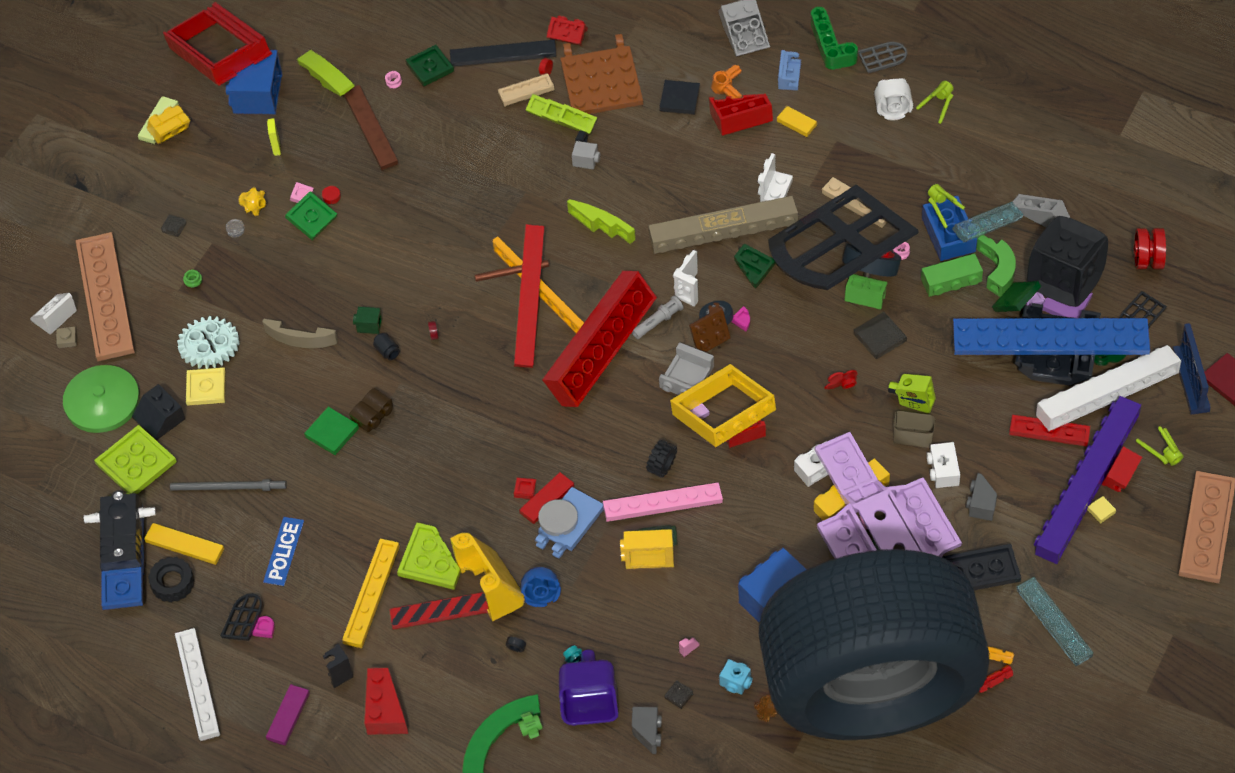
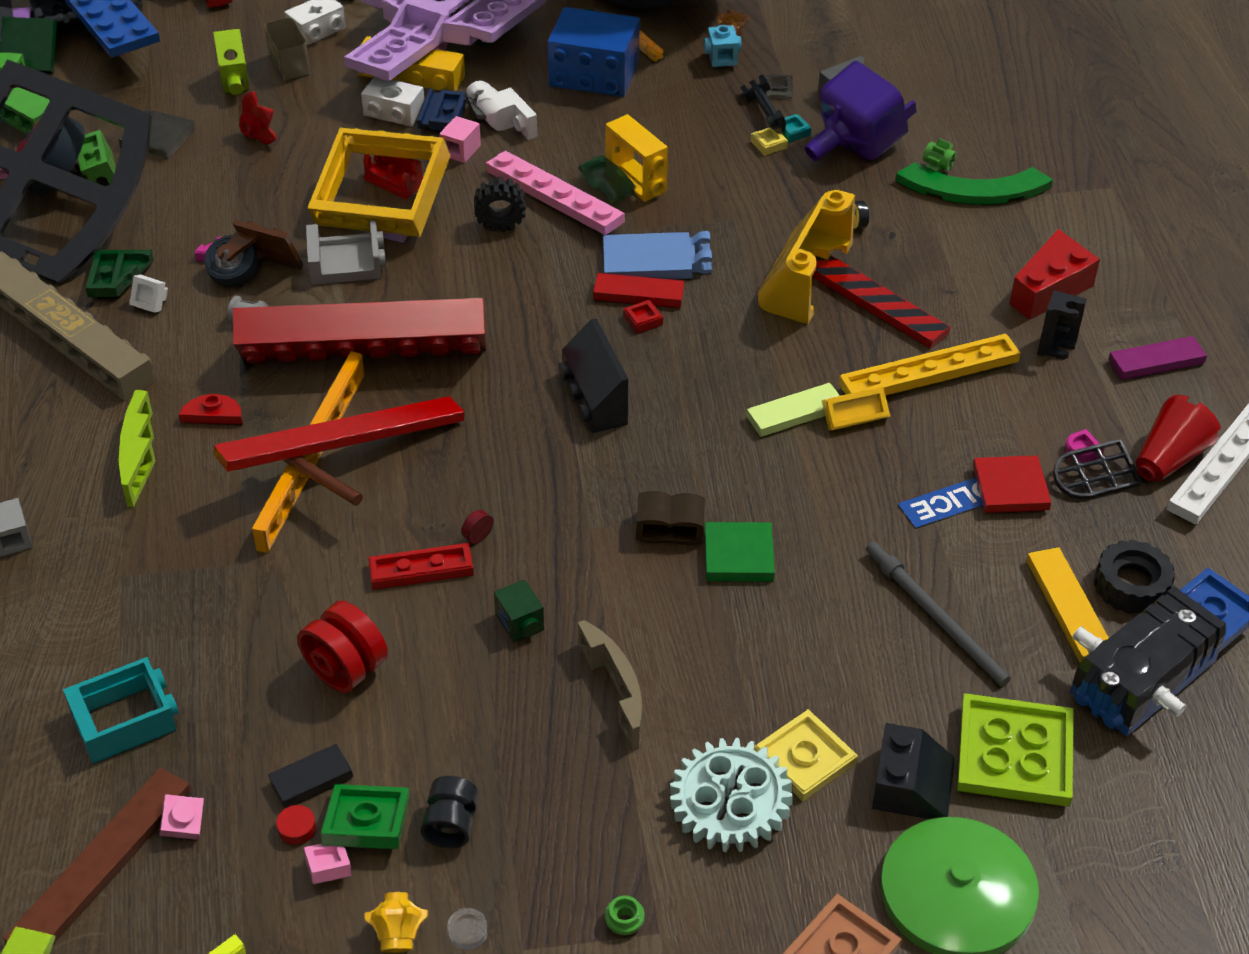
camera: 130 degrees left, 10 degrees down
(223, 662) = (1176, 438): none -> red cone
(268, 573) = (1011, 484): none -> red tile
(285, 241) = (450, 812): none -> black wheel
(350, 209) = (310, 776): none -> black tile
(365, 157) = (181, 817): none -> bright pink plate
(372, 536) = (855, 408): none -> yellow tile
(386, 346) = (548, 563): black brick -> none
(396, 237) = (342, 646): none -> red wheel
(398, 514) = (790, 410): none -> yellowish green tile
(429, 559) = (829, 343): lime plate -> none
(432, 301) = (420, 566): none -> red tile
(439, 142) = (110, 688): none -> teal window
(483, 428) = (595, 379): none -> black slope
(540, 586) = (766, 223): blue cylinder -> none
(558, 517) = (663, 254): light grey tile -> none
(572, 654) = (817, 176): teal plate -> none
(607, 266) = (211, 409): none -> red plate
(627, 651) = (769, 141): none -> light yellow tile
(629, 672) = (796, 128): none -> teal tile
(681, 674) = (774, 118): none -> black hinge
(684, 280) = (189, 302): white bracket -> none
(687, 646) = (718, 97): bright pink tile -> none
(719, 270) = (148, 293): none -> white tile
(749, 479) = (461, 138): none -> bright pink brick
(764, 516) = (501, 109): none -> white plate
(790, 487) = (441, 109): none -> dark blue plate

